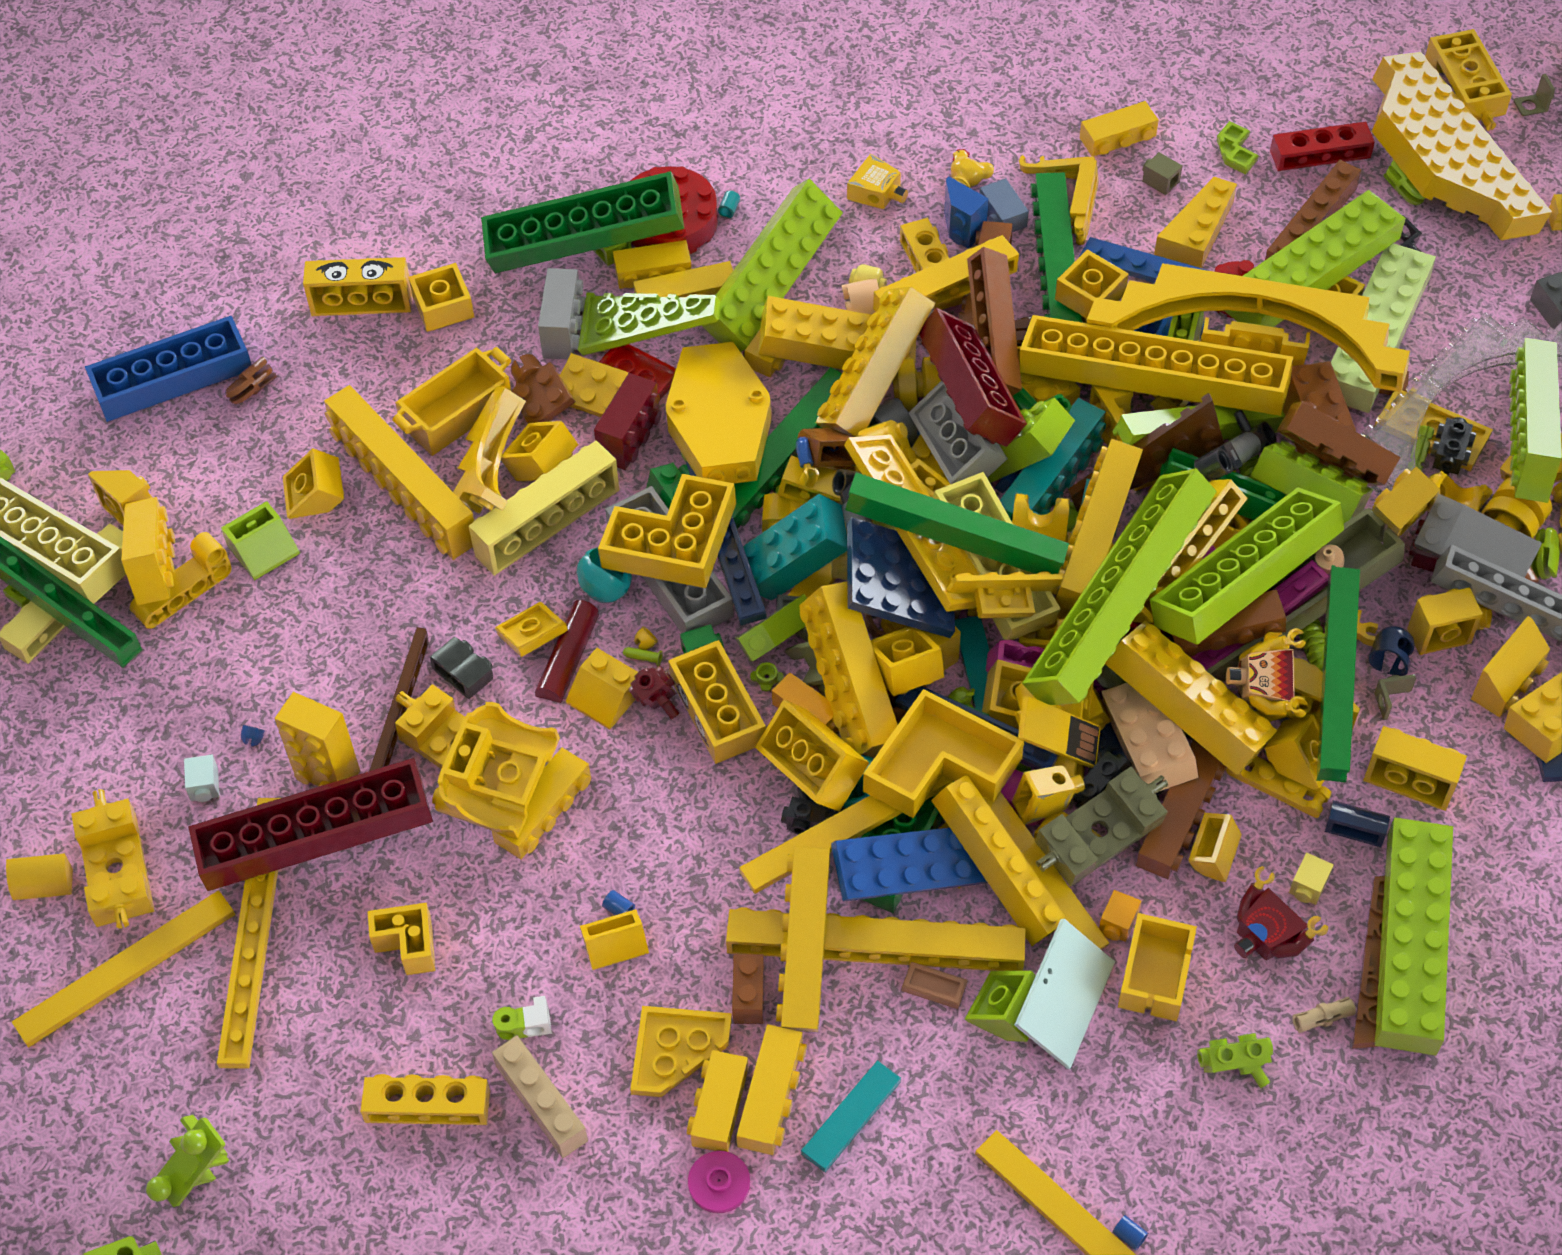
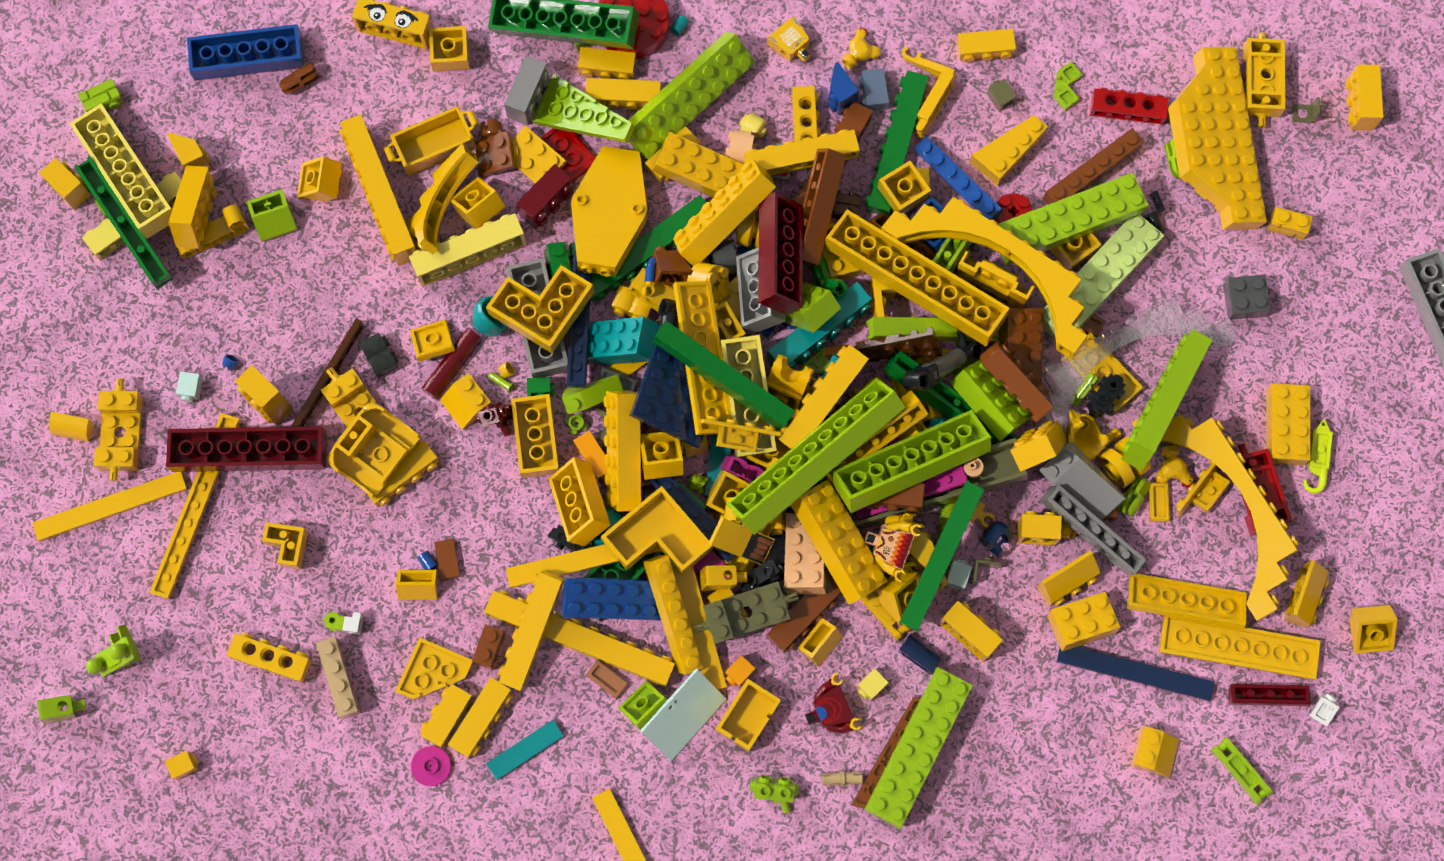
camera: 15 degrees right, 20 degrees up
(646, 896) = (447, 559): none -> dark orange tile
(1370, 712) = (958, 574): none -> light aqua brick

